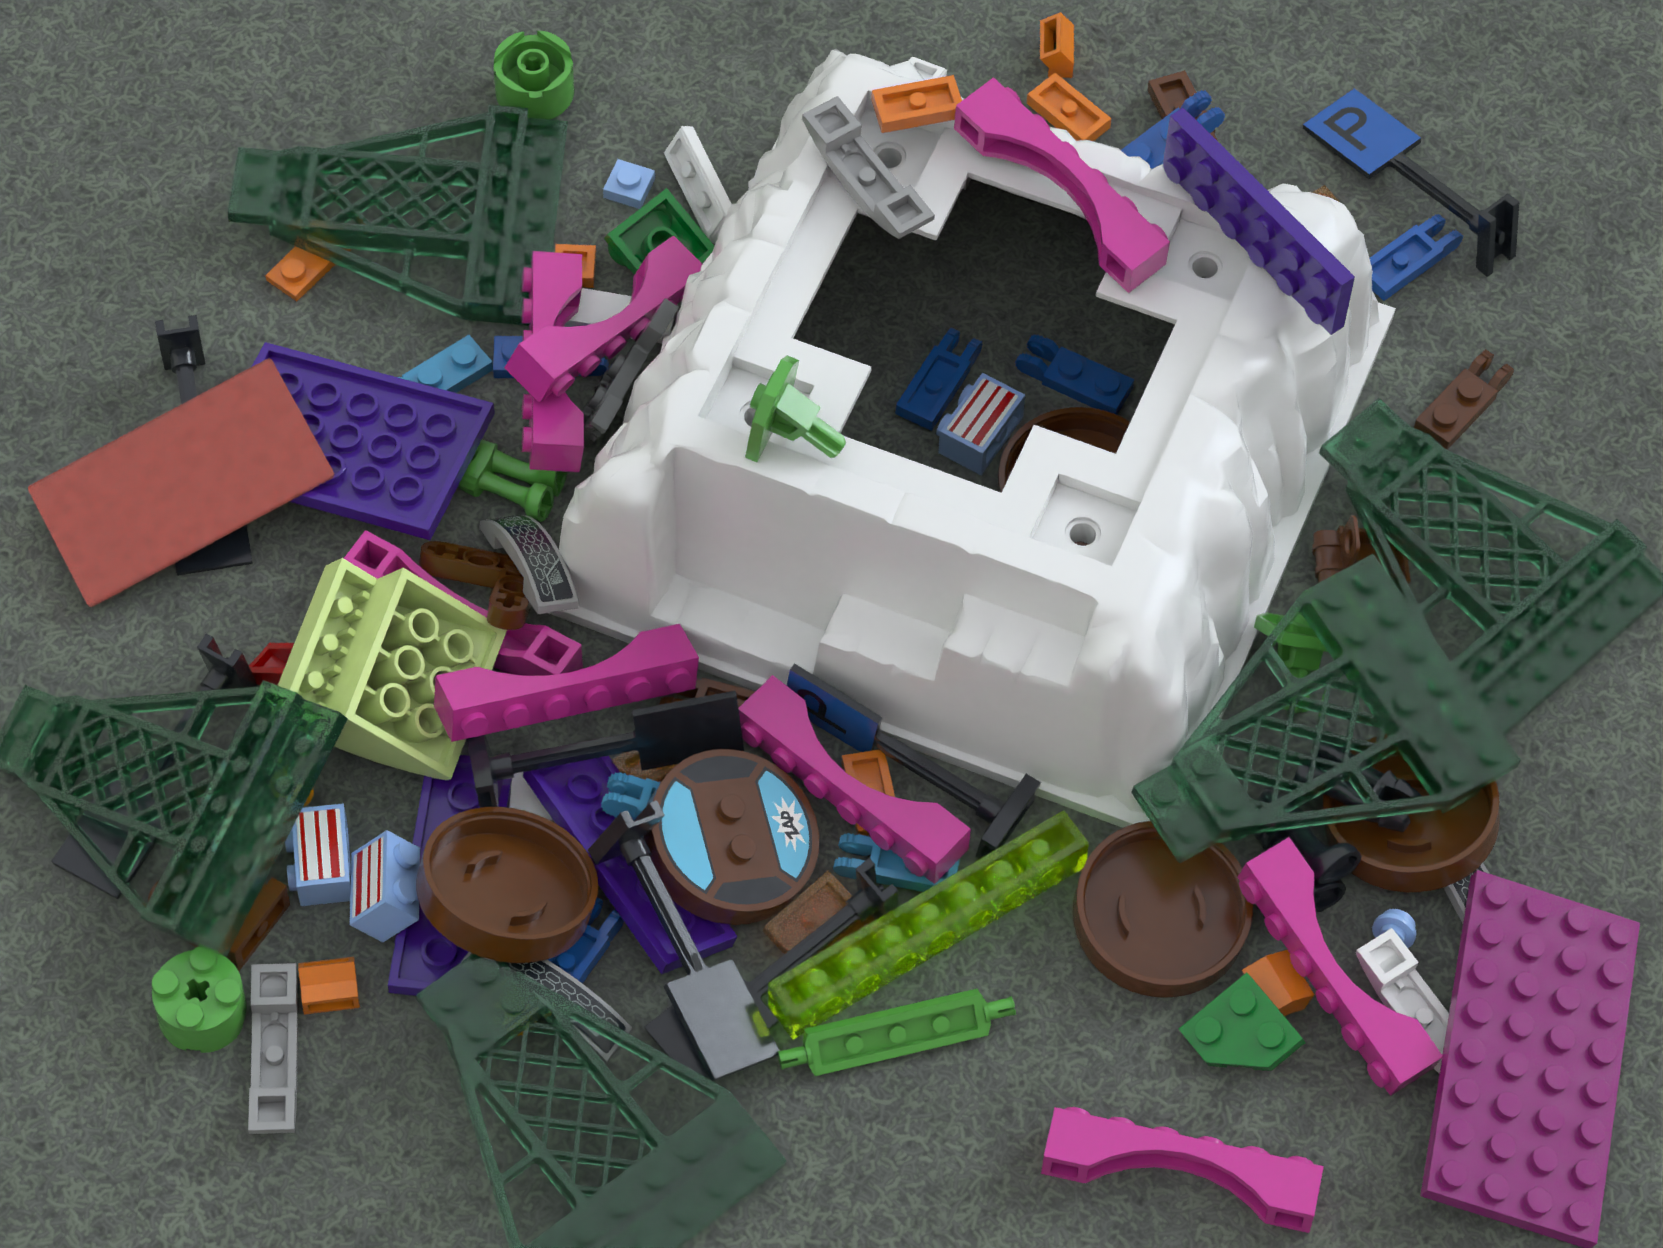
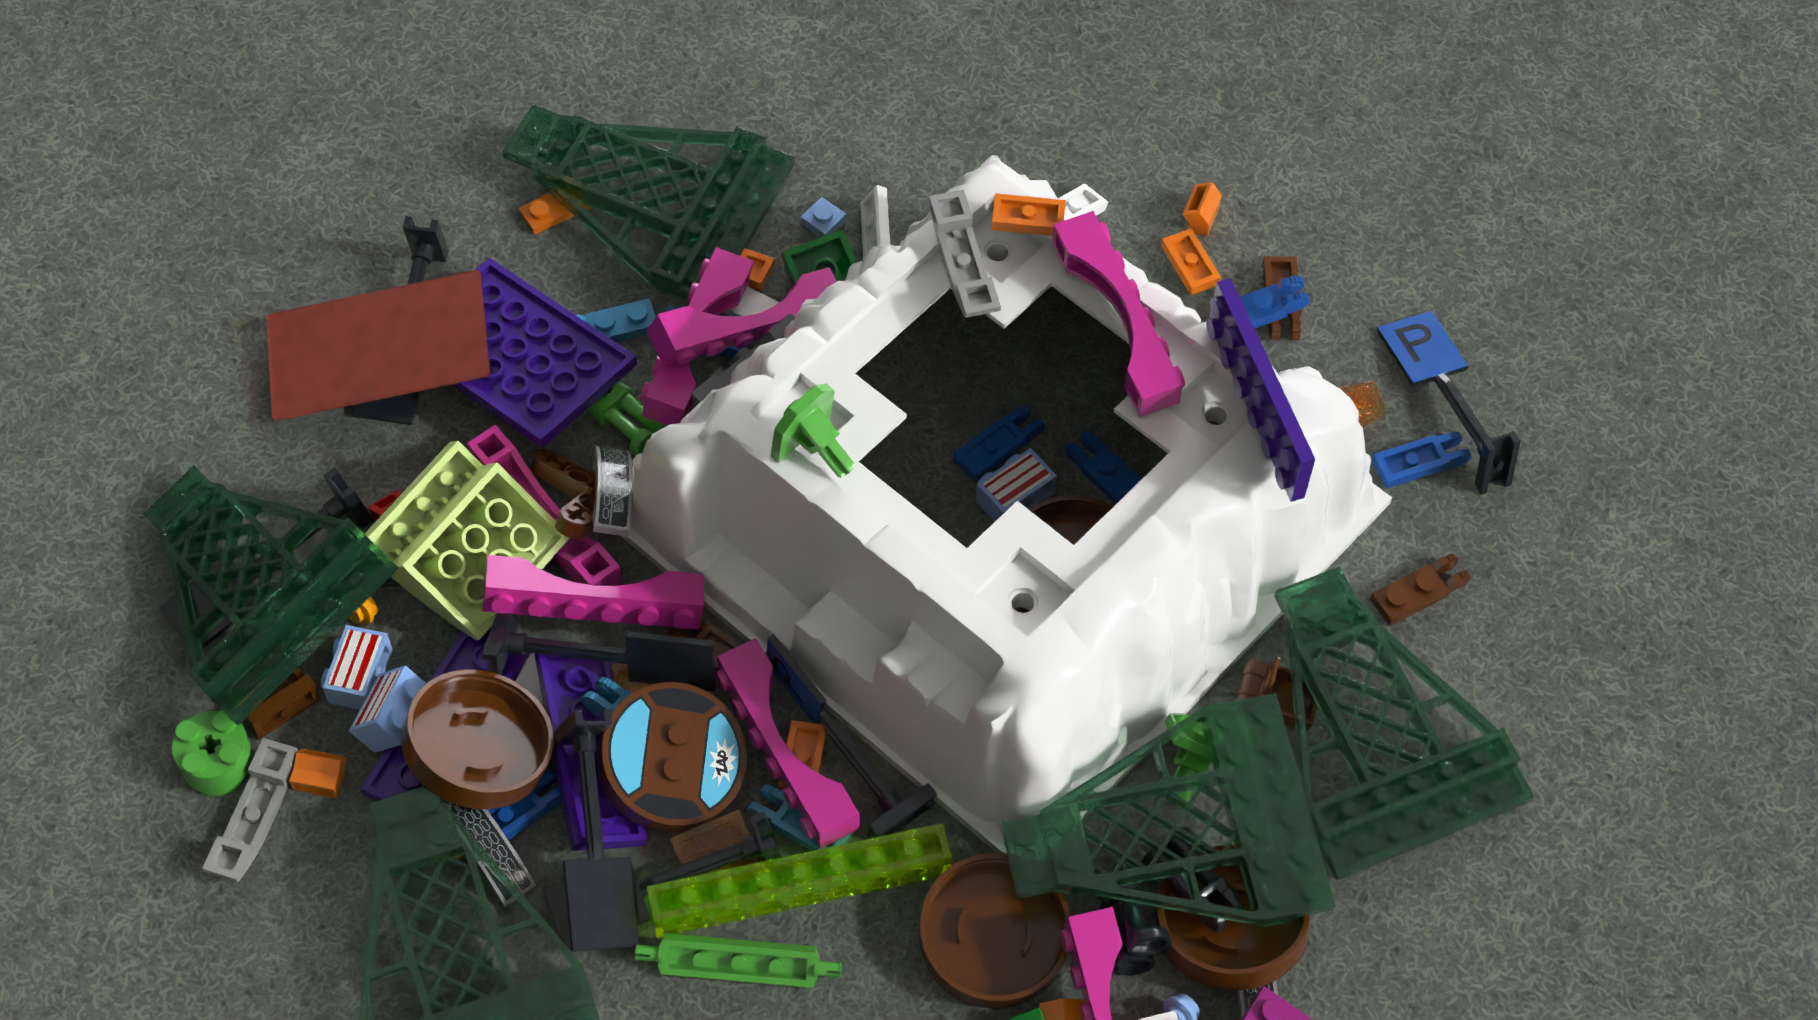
camera: 20 degrees right, 0 degrees up
(534, 74) = (783, 114): bright green brick -> none

